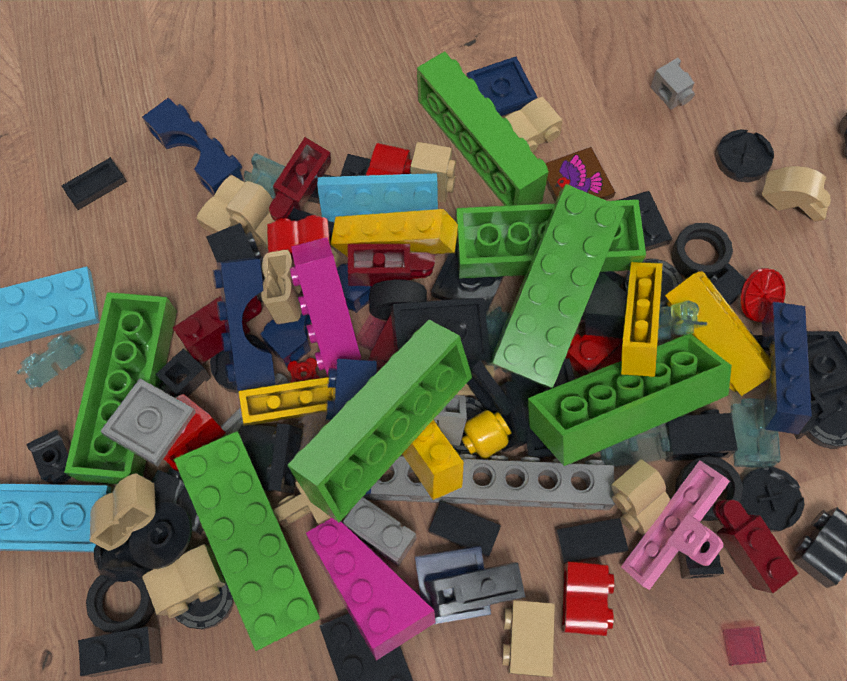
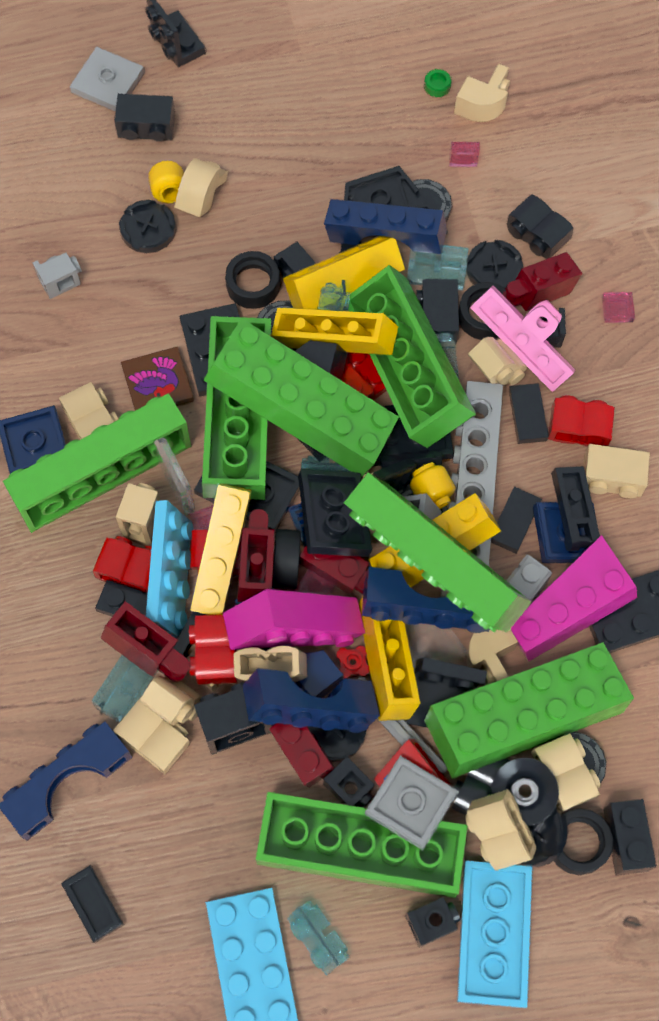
camera: 90 degrees left, 0 degrees up
(477, 191) = (174, 475): none -> clear tile
(760, 291) = (306, 234): red wheel -> none
(797, 155) = (165, 181): none -> yellow head

